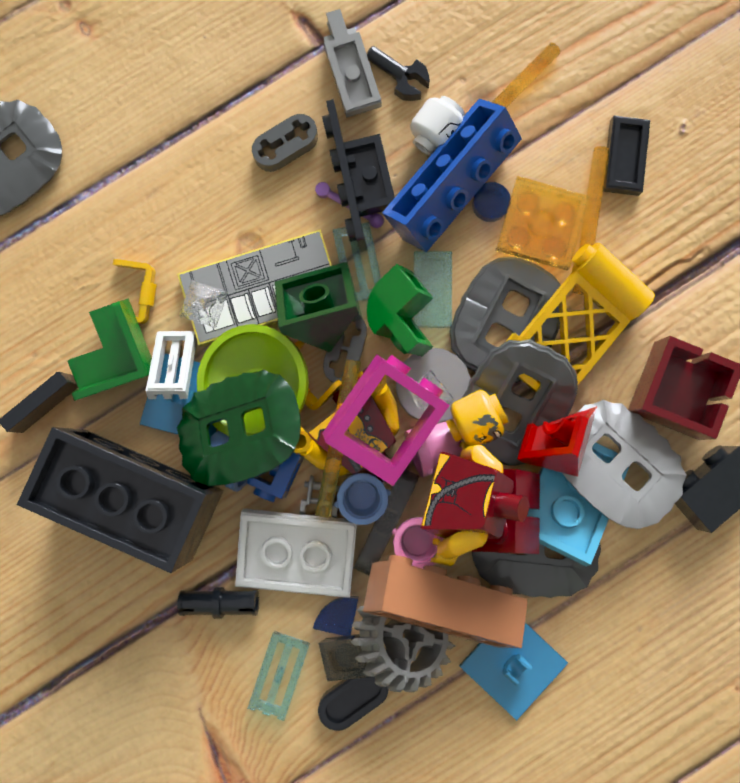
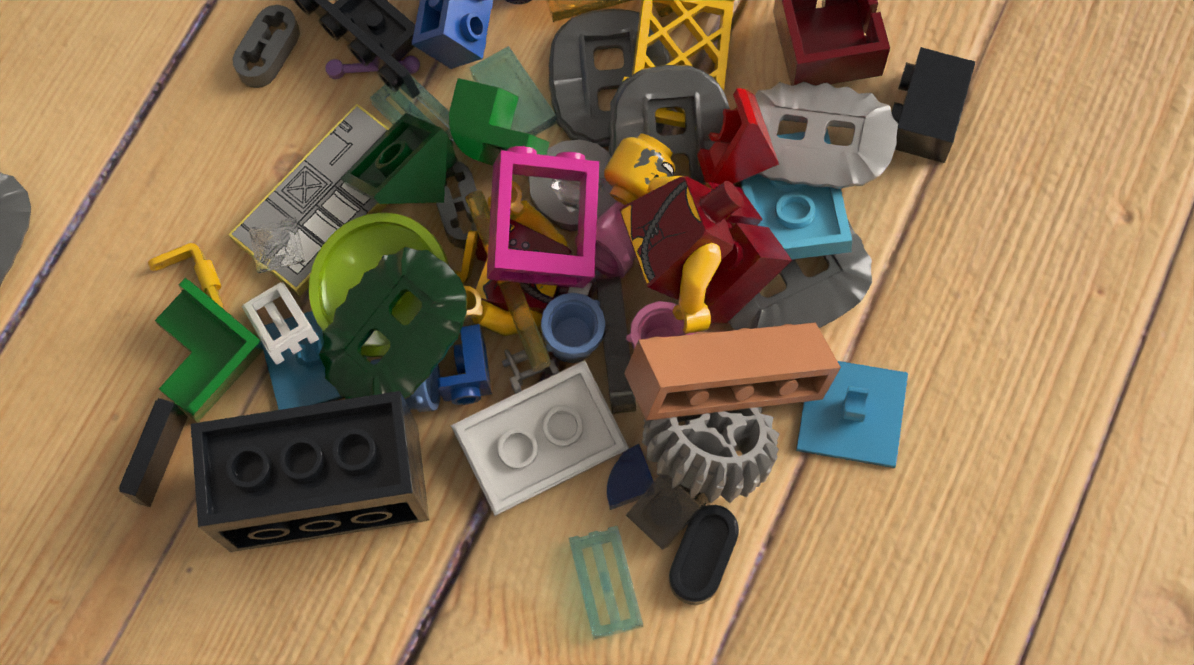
camera: 30 degrees left, 15 degrees down
(218, 603) = (487, 543): black pin -> none

